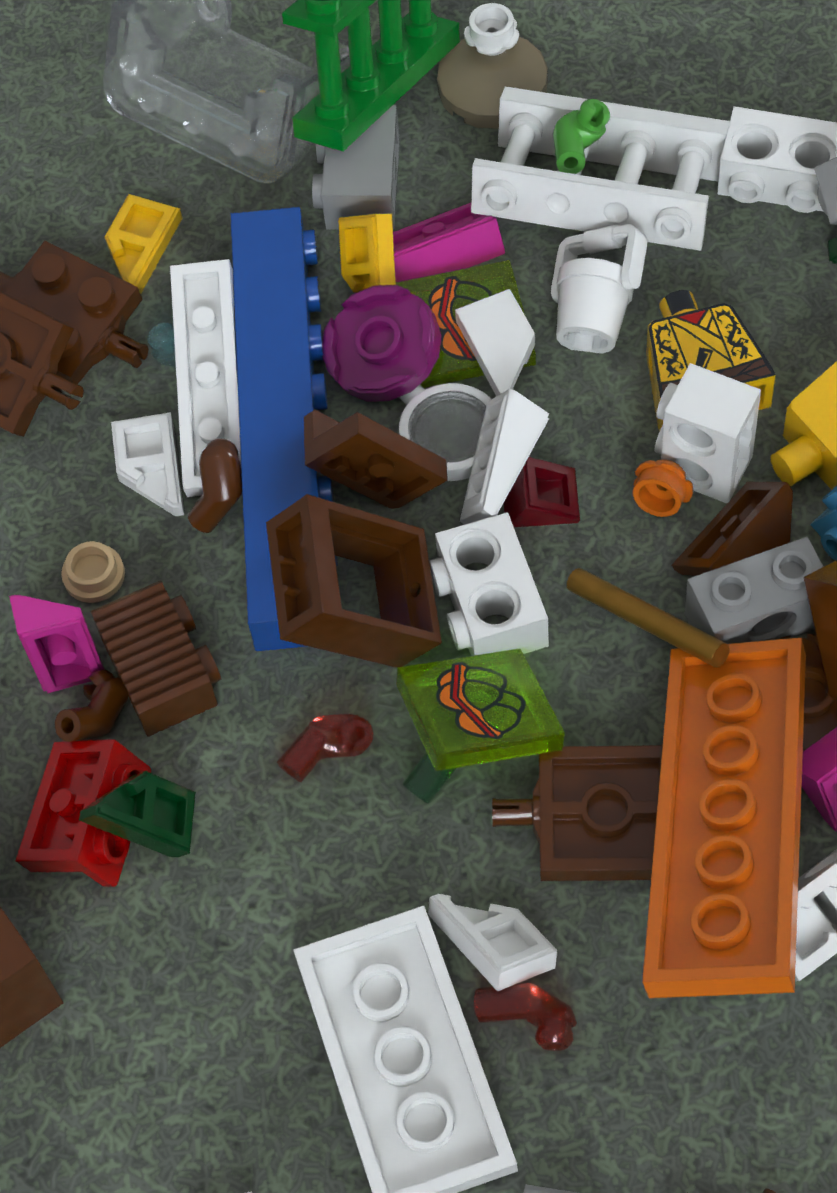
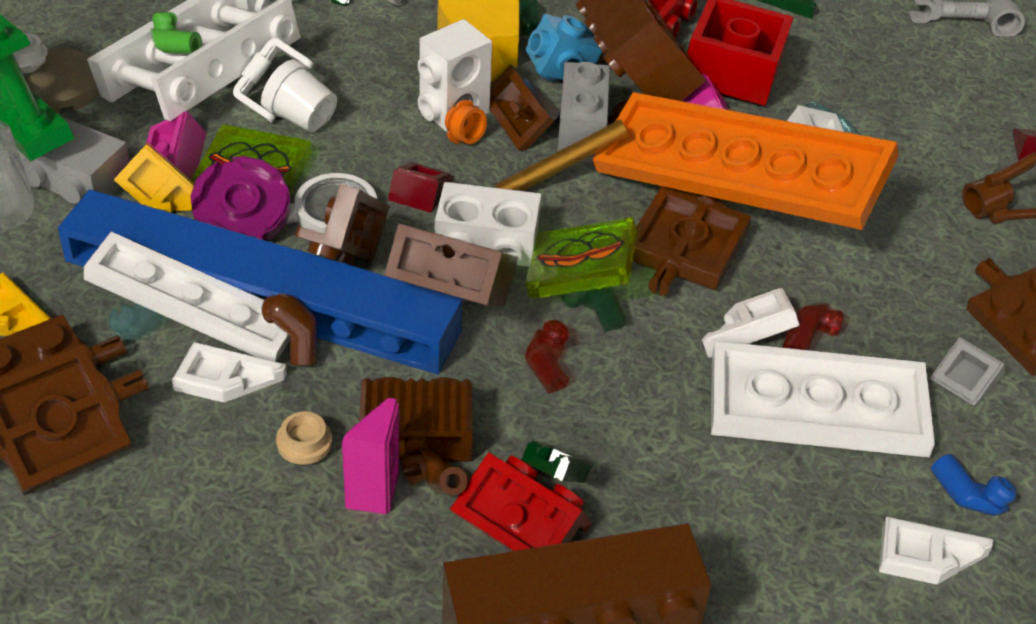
camera: 75 degrees left, 15 degrees down
(497, 337) = (293, 146): white tile -> none
(503, 447) = (365, 163): white slope -> none
(707, 338) = (380, 72): torso -> none

